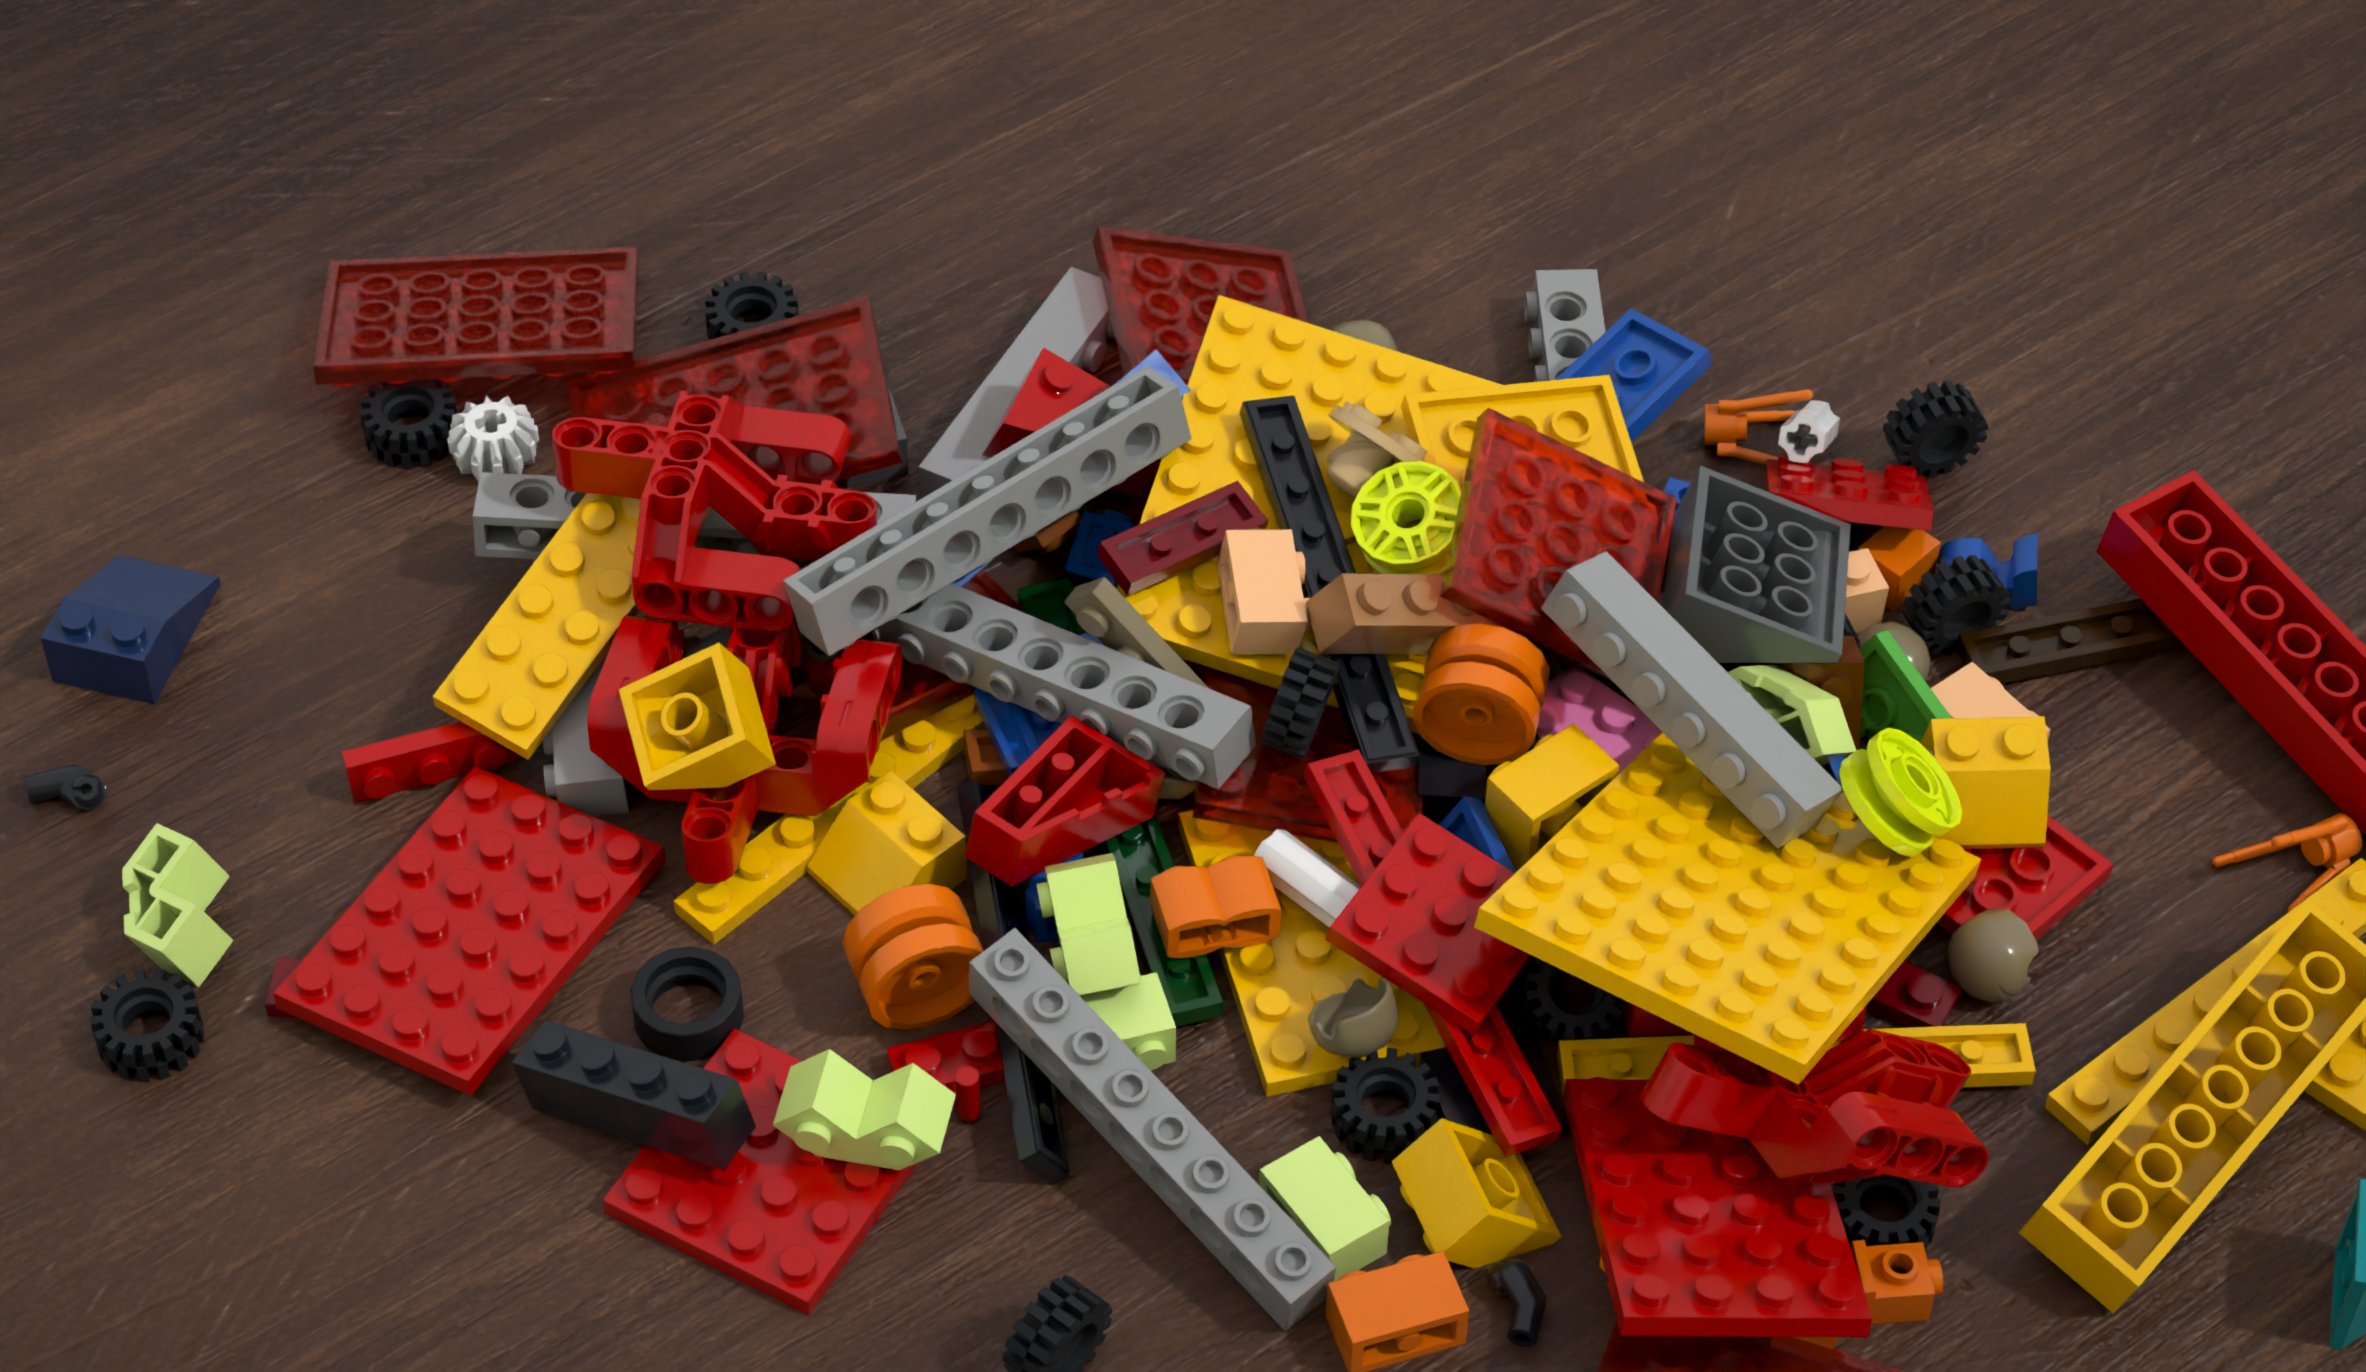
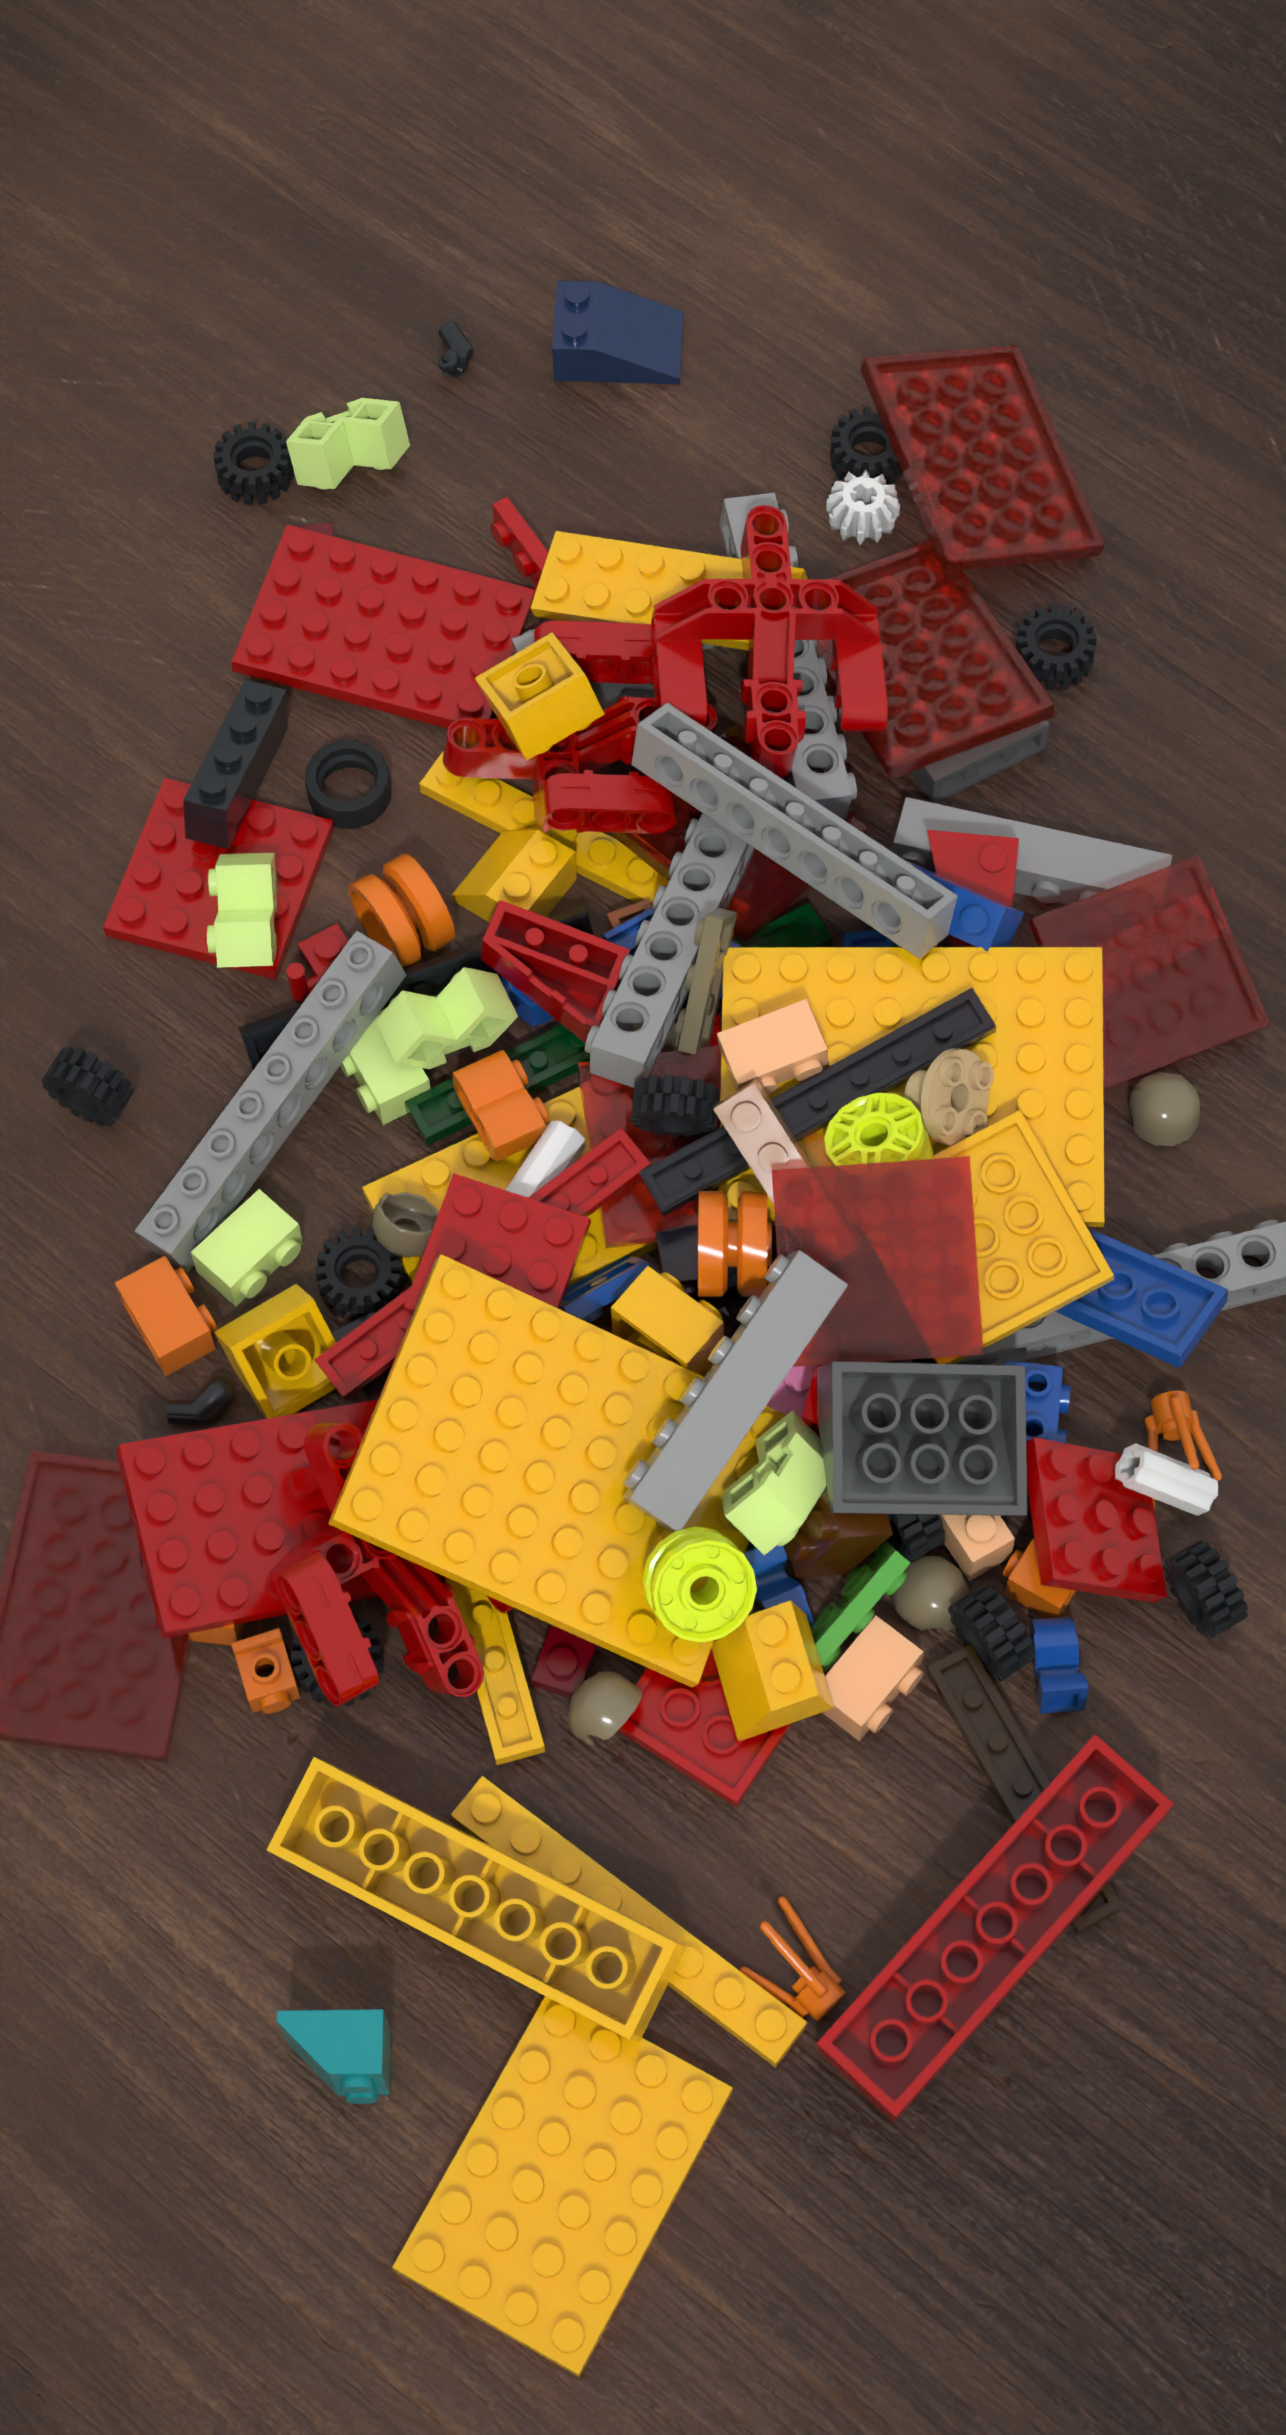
camera: 80 degrees right, 15 degrees up
(1178, 538) = (807, 976): dark red plate -> none

